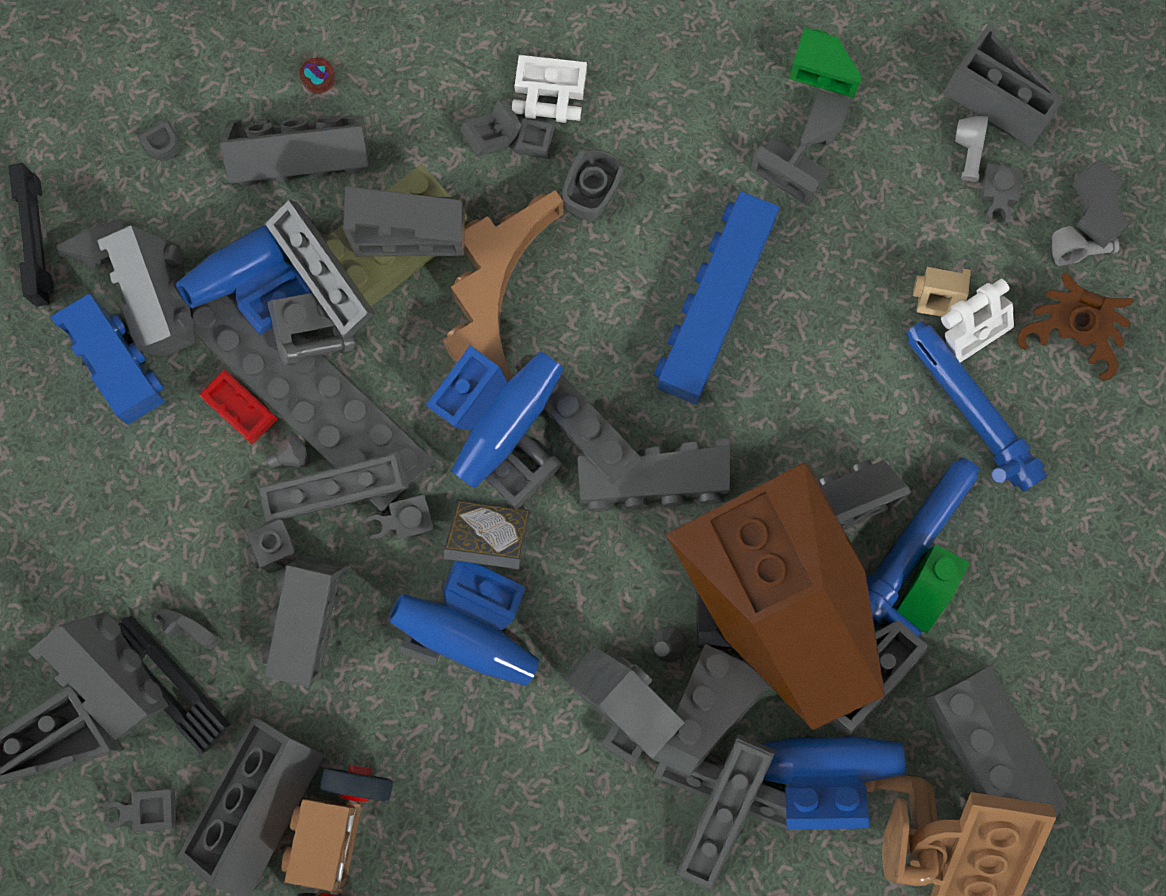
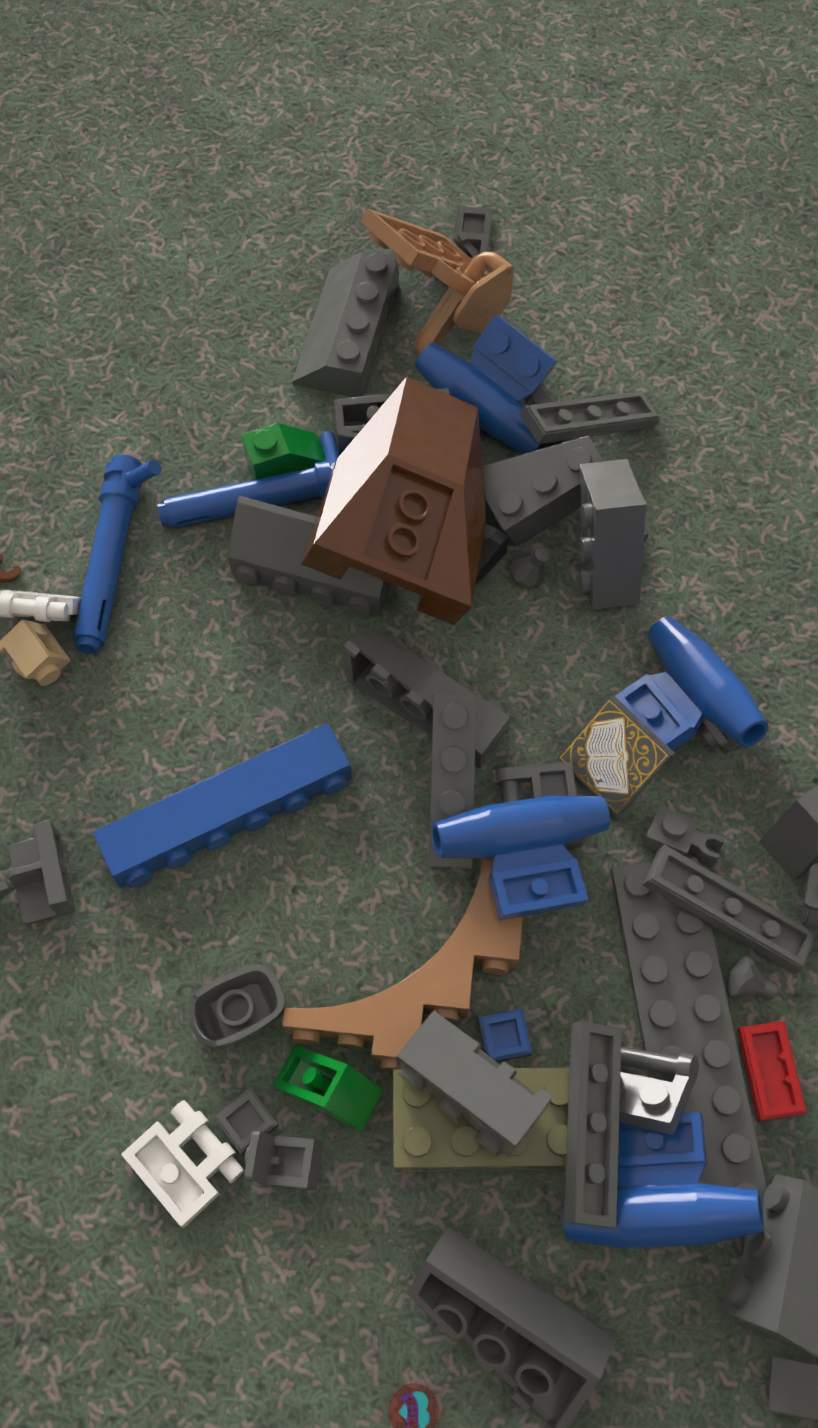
camera: 140 degrees left, 10 degrees down
(420, 302) = (505, 1035): none -> blue tile
(499, 185) = (329, 1087): none -> green slope

